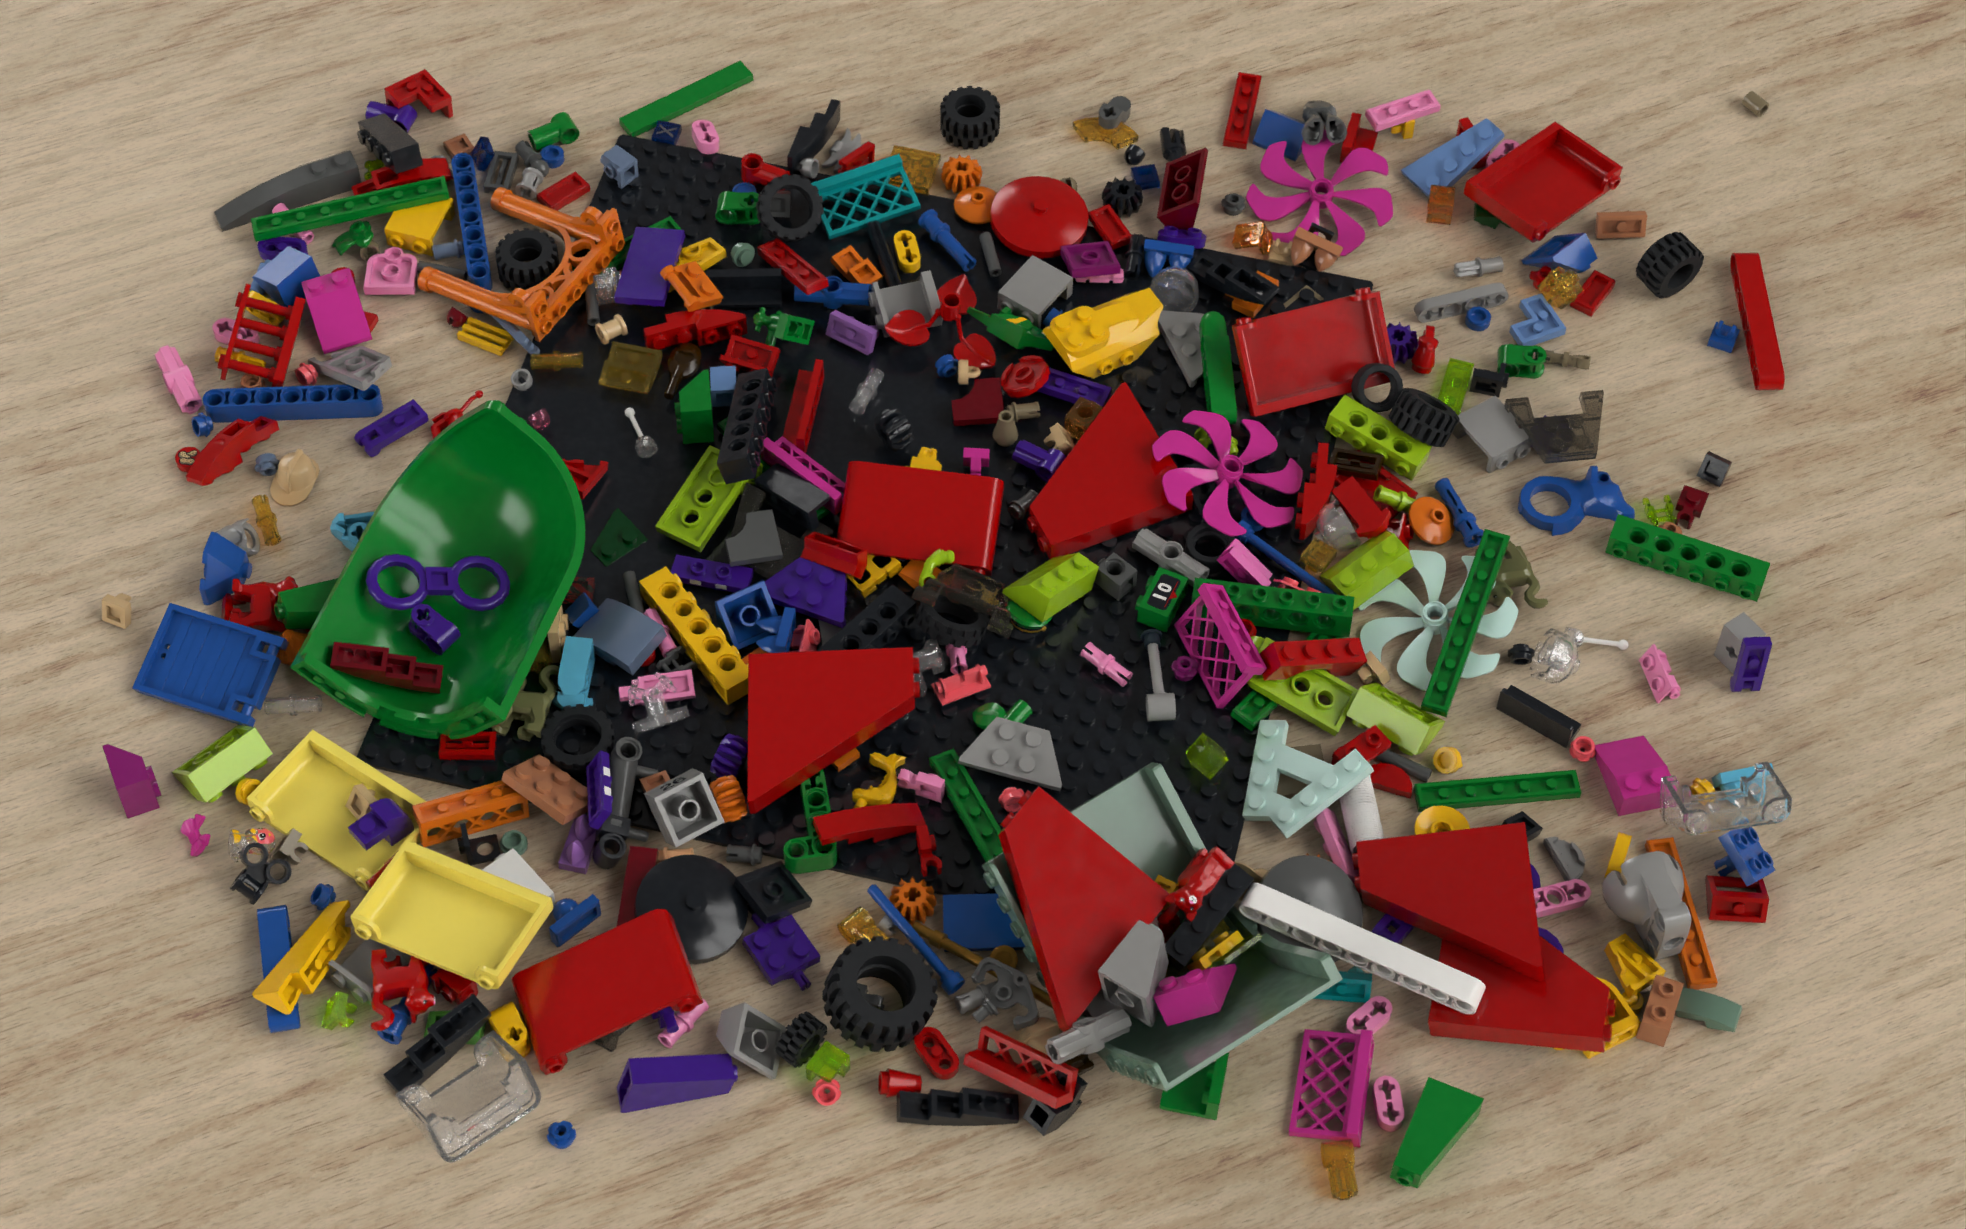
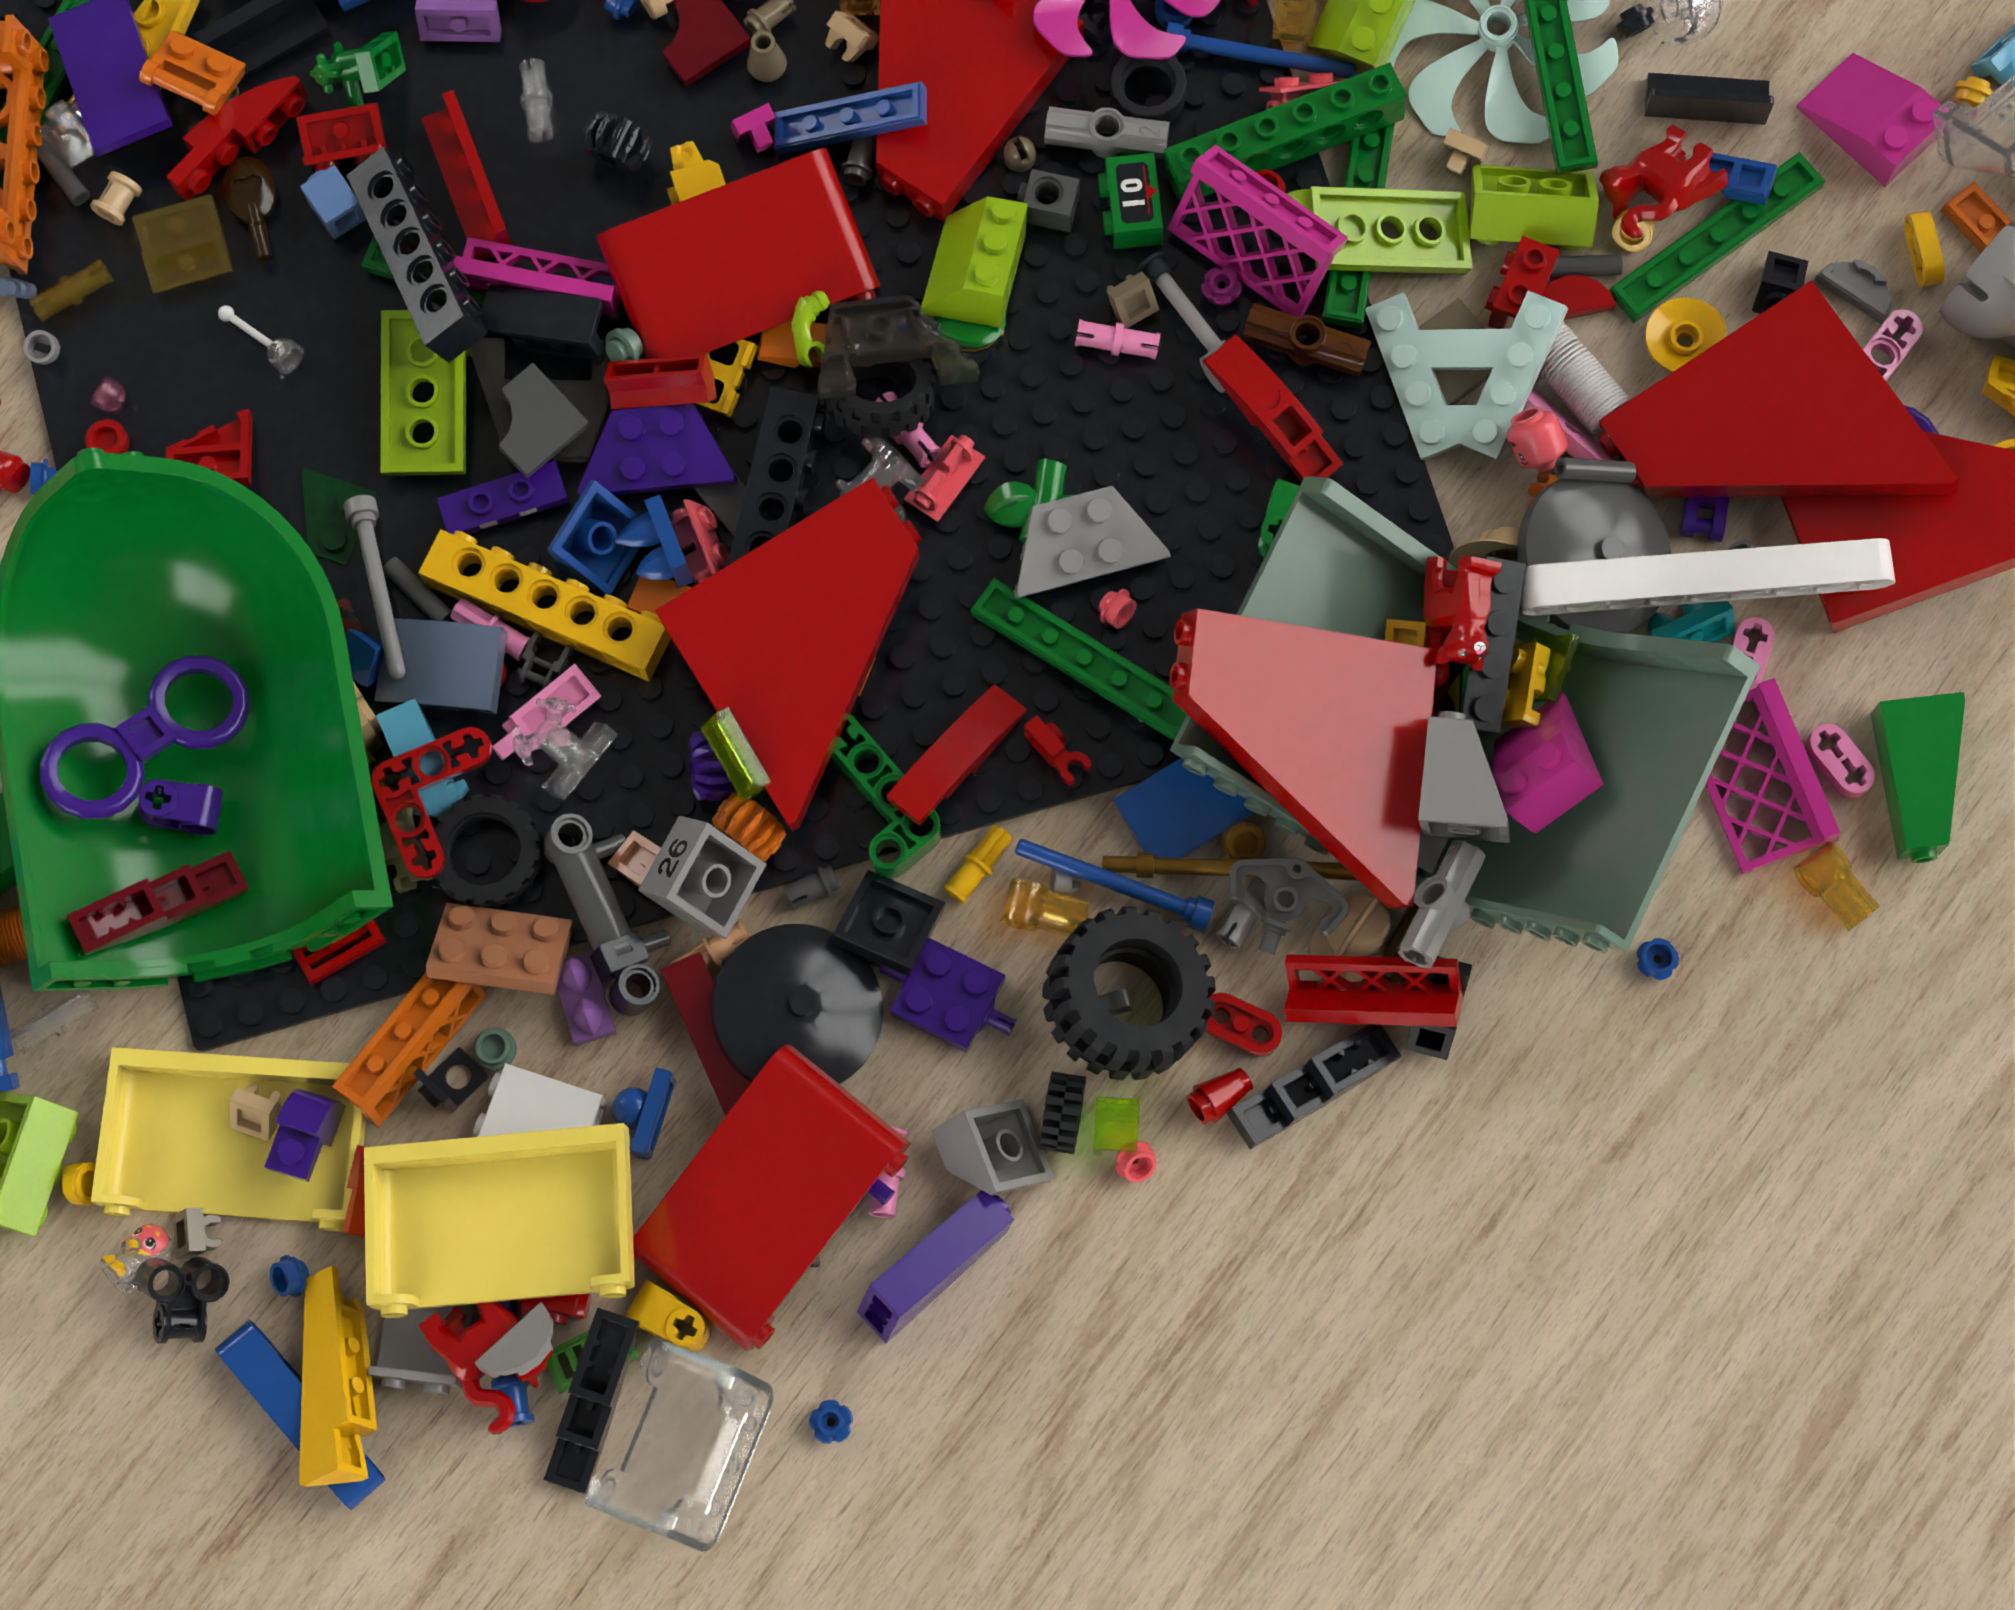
camera: 25 degrees left, 20 degrees up
(191, 830) = (39, 1282): dark pink piece -> none
(335, 1011) = (419, 1428): clear neon green tile -> none
(417, 986) = (521, 1347): none -> light grey tile
(556, 681) = (409, 797): none -> red beam
(599, 790) = (571, 916): dark purple plate -> none
(630, 542) = (362, 514): none -> light grey piece
(695, 411) = (325, 265): green slope -> none
(742, 749) = (735, 754): none -> clear neon green tile
(828, 527) = (623, 345): none -> sand green plate
(843, 892) = (978, 864): none -> yellow axle
(887, 789) = (945, 699): yellow animal -> none
(921, 895) = (1094, 827): orange gear -> none
(925, 785) = (997, 652): bright pink plate -> none
(1033, 478) = (850, 118): none -> blue tile
(1038, 459) = (839, 78): dark purple piece -> none
(1115, 540) = (1012, 157): none -> dark tan hinge
(1128, 648) = (1132, 299): none -> dark tan tile
(1168, 737) = (1273, 409): none -> red slope
(1206, 756) = (1331, 401): clear neon green panel -> none
(1211, 1145) = (1660, 948): none -> blue plate
(1223, 727) = (1281, 330): none -> reddish brown piece
(1244, 565) = (1214, 92): dark pink panel -> none
(1289, 658) = (1389, 183): red arch -> none
(1312, 832) = (1536, 439): none -> coral head
(1333, 861) = (1595, 470): none -> dark grey piece
(1484, 737) = (1665, 177): none -> red animal
(1531, 765) = (1747, 178): none -> blue tile
(1584, 743) = (1790, 106): coral plate -> none

